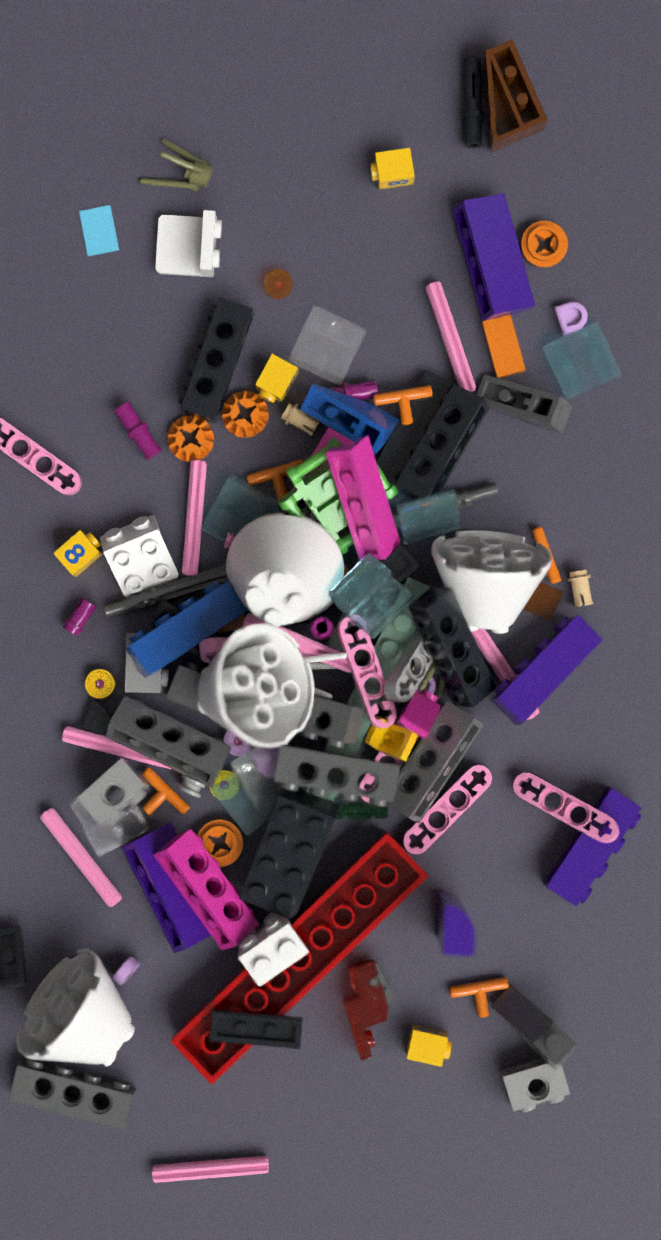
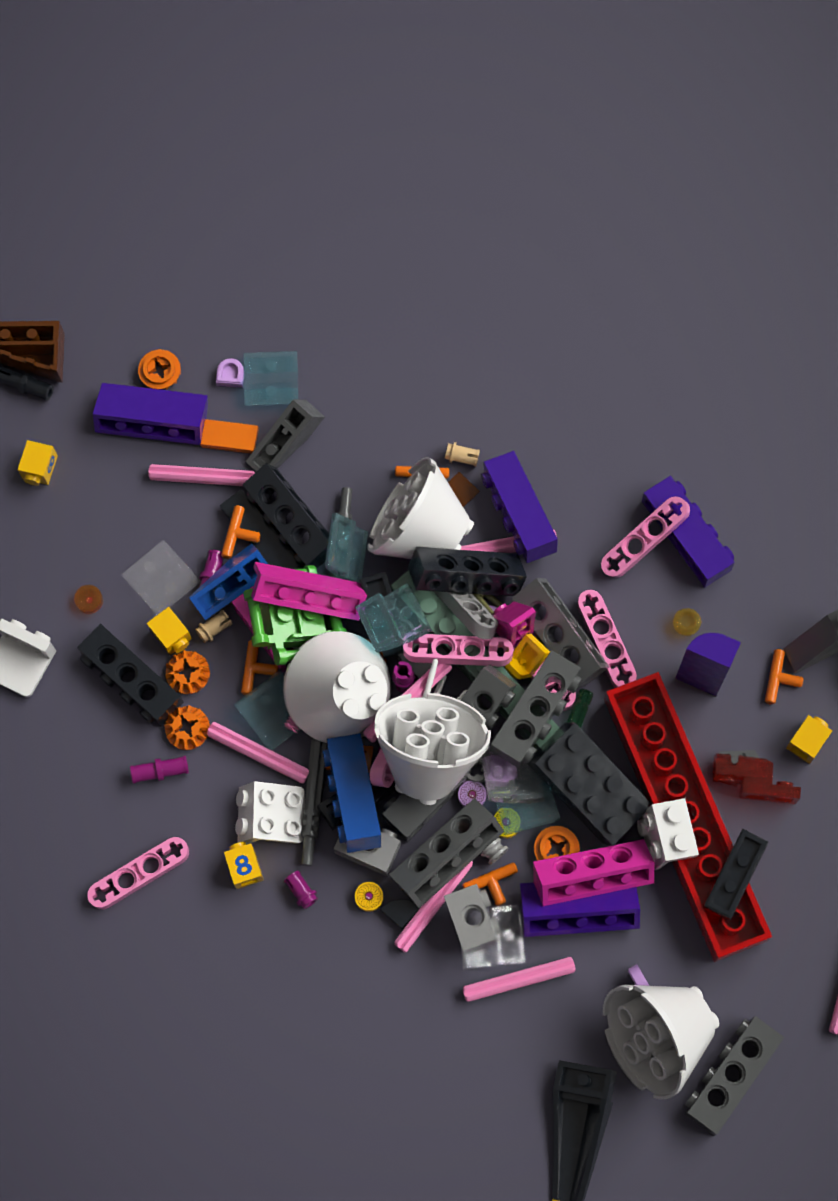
camera: 65 degrees left, 15 degrees down
(498, 880) = (687, 622): none -> clear yellow plate

